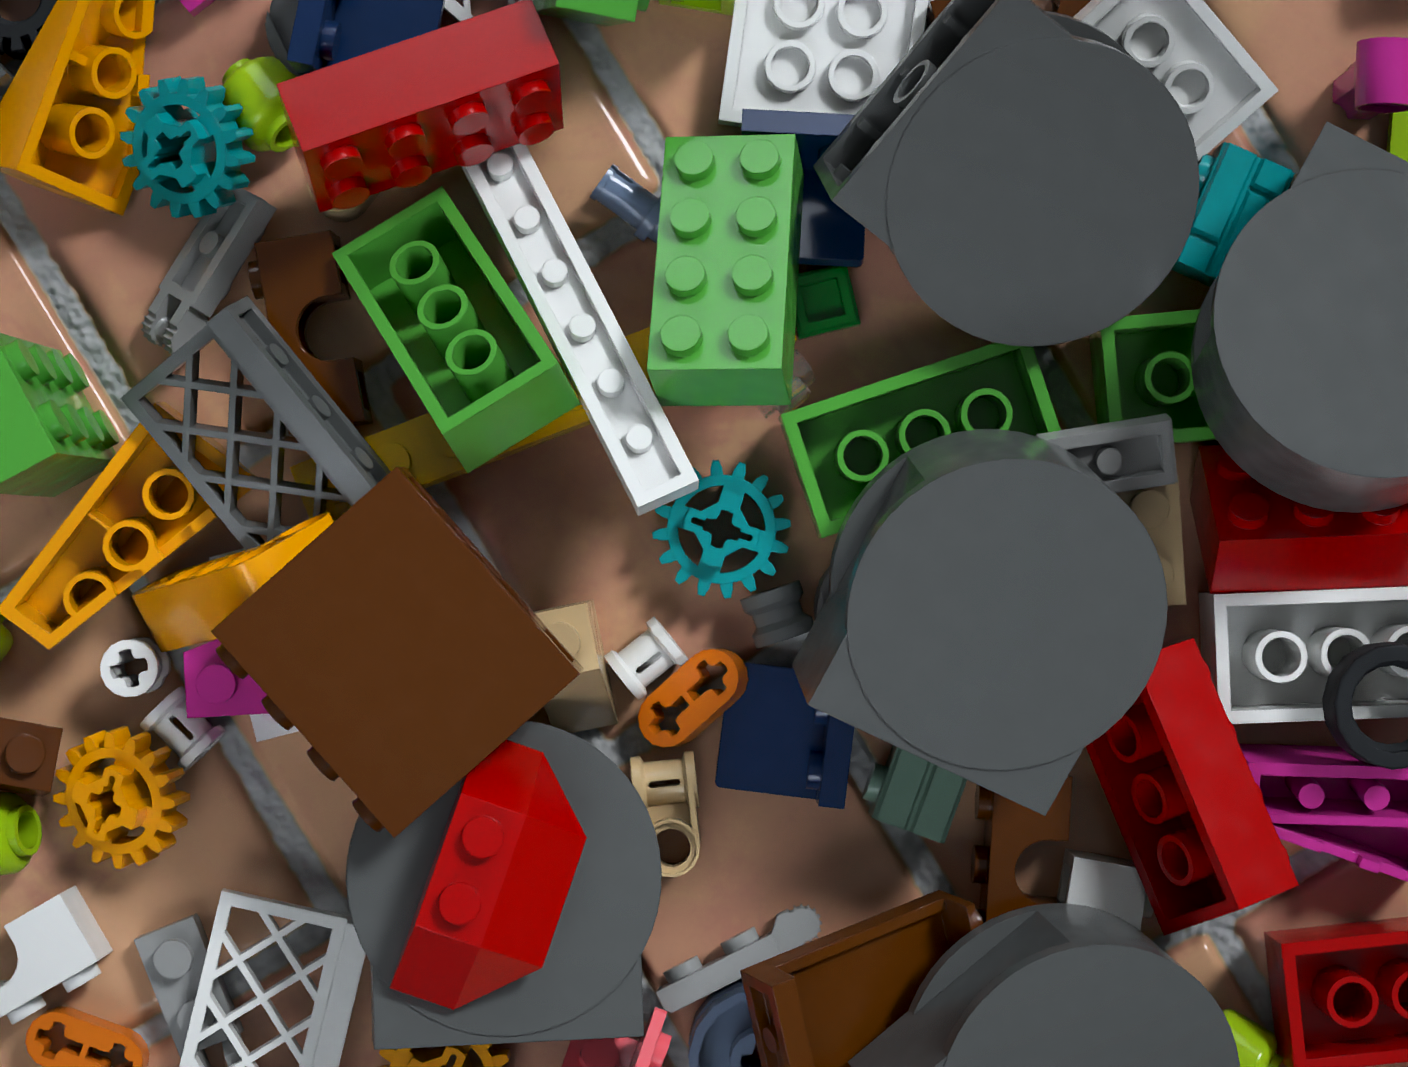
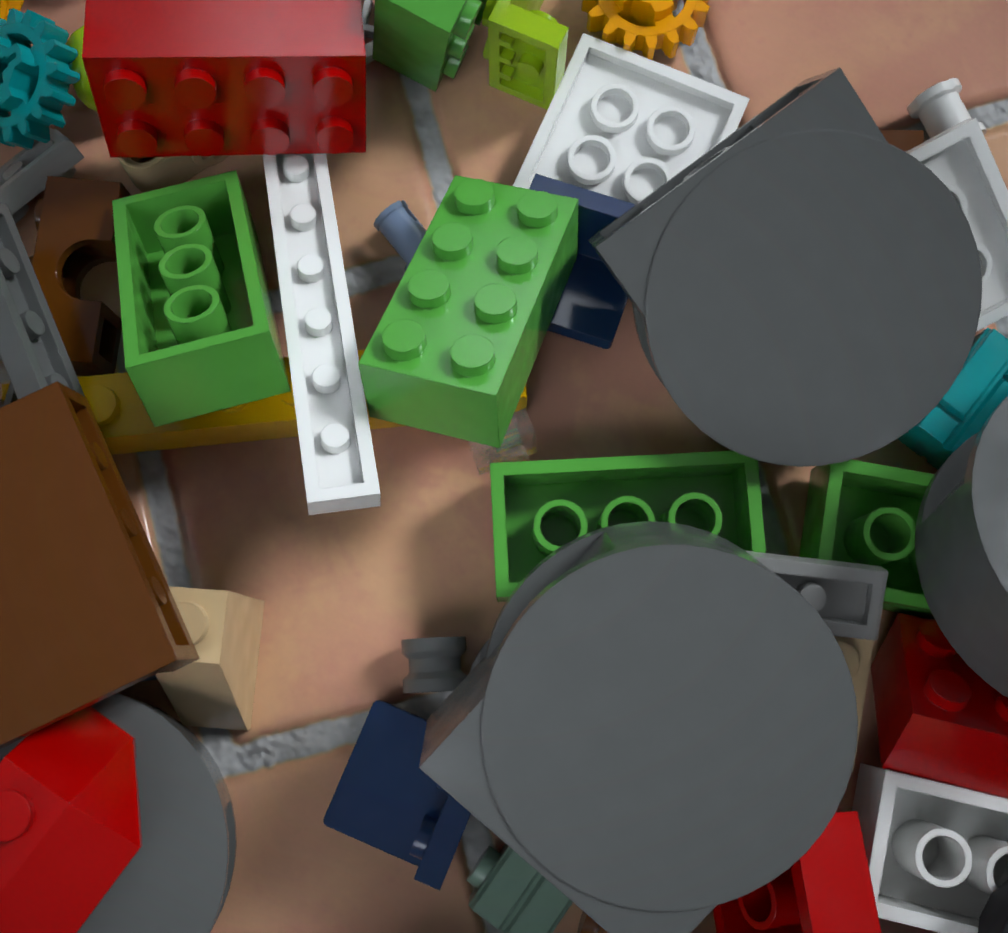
camera: 15 degrees right, 10 degrees down
(646, 658) = (271, 672): white bush -> none
(671, 804) = (265, 833): tan piece -> none
(683, 687) = (320, 713): orange beam -> none
(712, 558) = (420, 539): teal gear -> none
(825, 302) = (563, 380): green tile -> none

